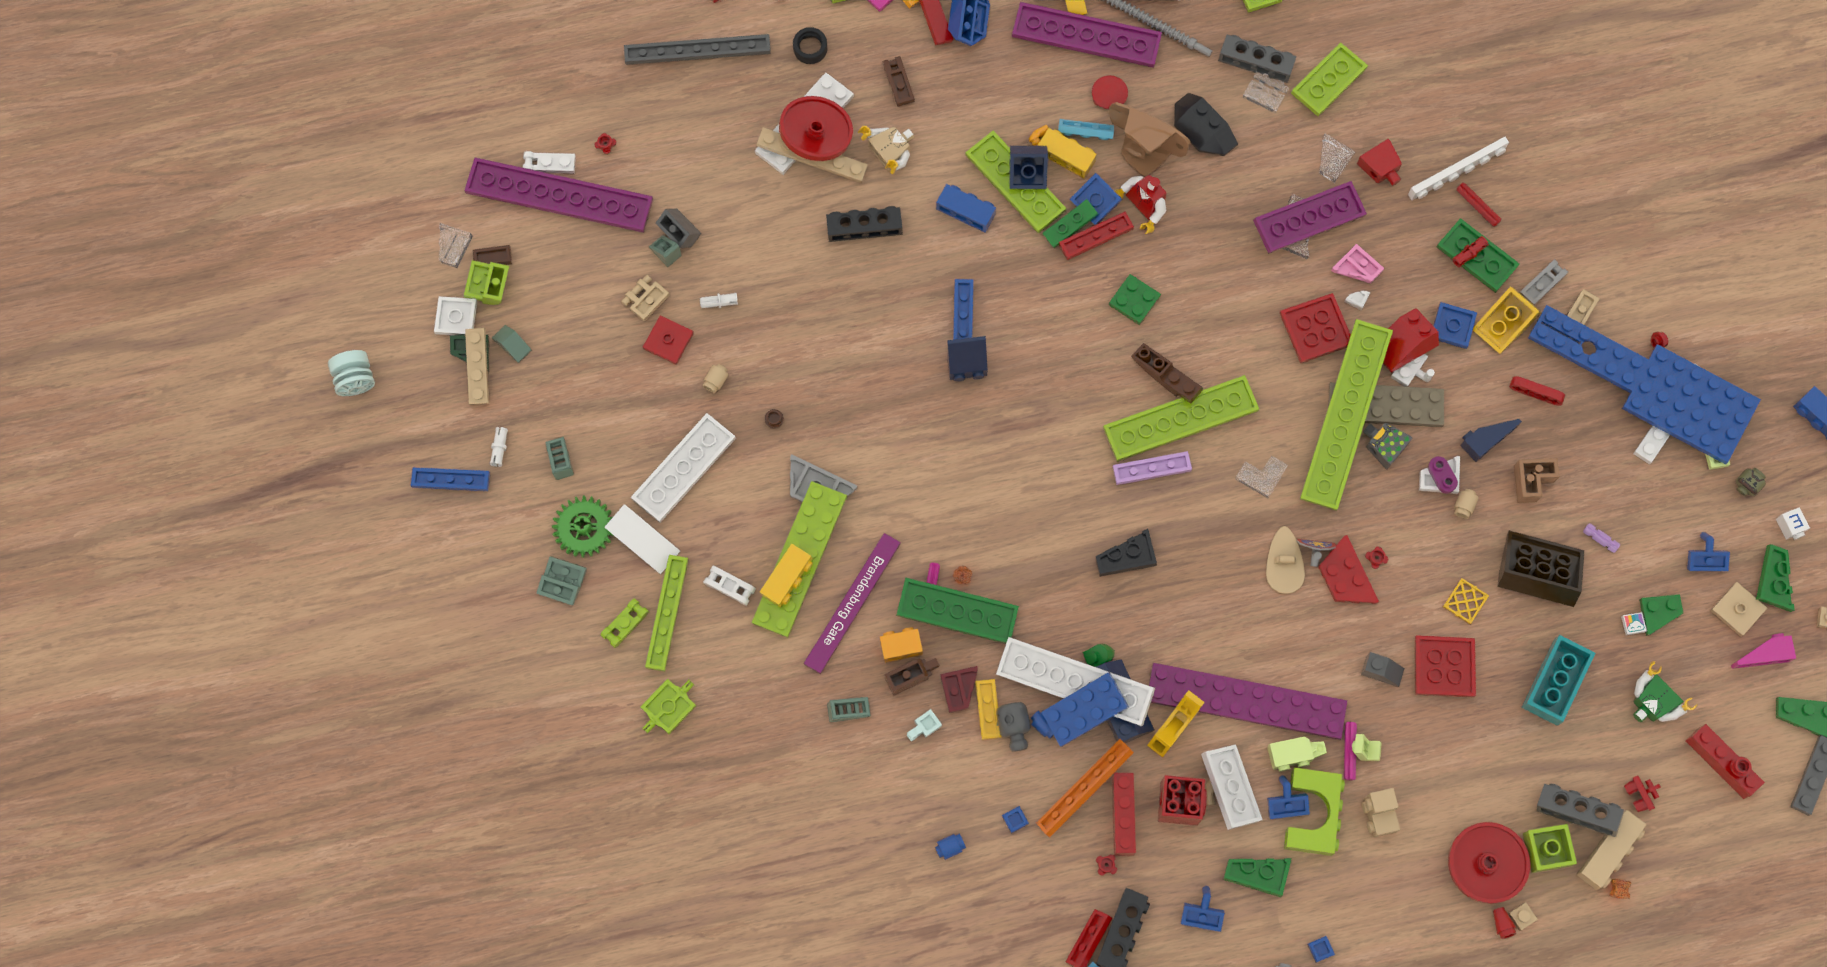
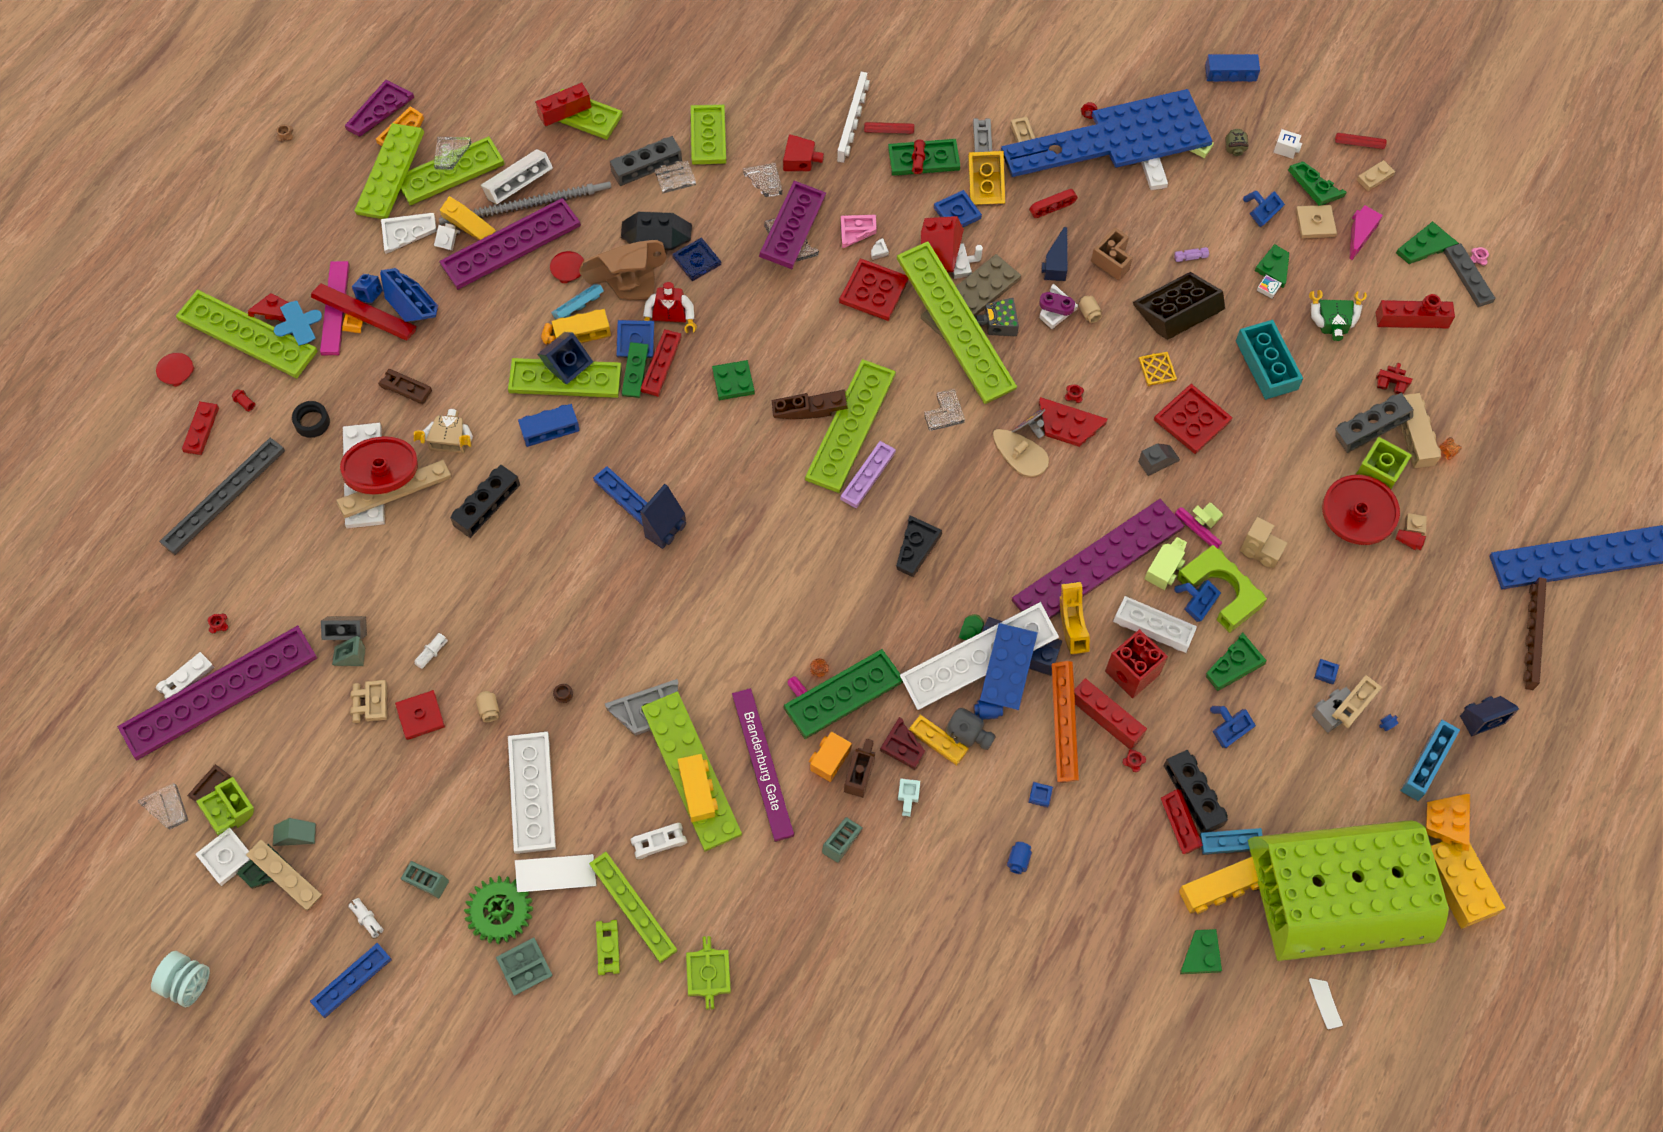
camera: 50 degrees left, 10 degrees down
(1211, 176) = (696, 259): none -> clear blue tile

